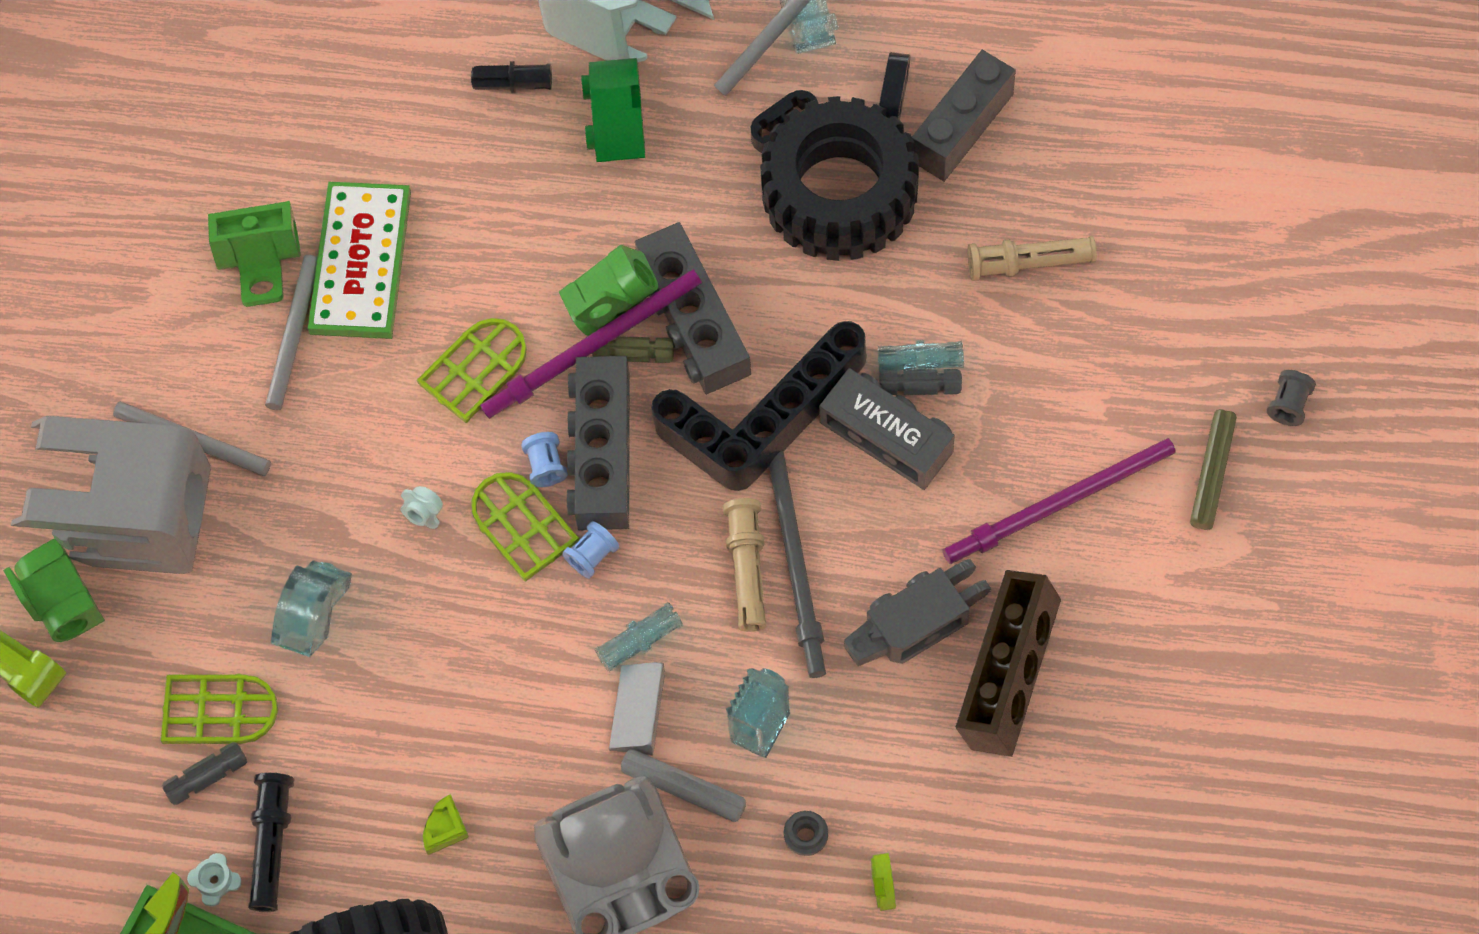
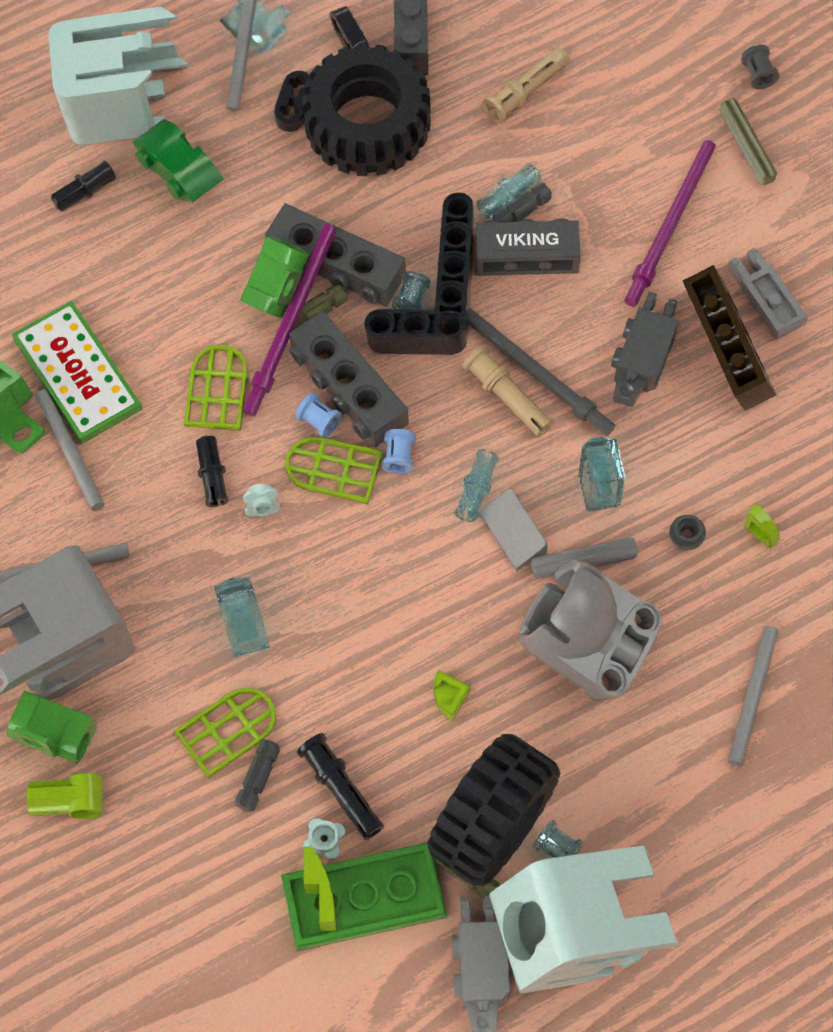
camera: 40 degrees left, 0 degrees up
(400, 445) = (211, 471): none -> black axle
(734, 398) = (412, 291): none -> clear light blue bush
(1095, 649) = (768, 294): none -> light grey hinge

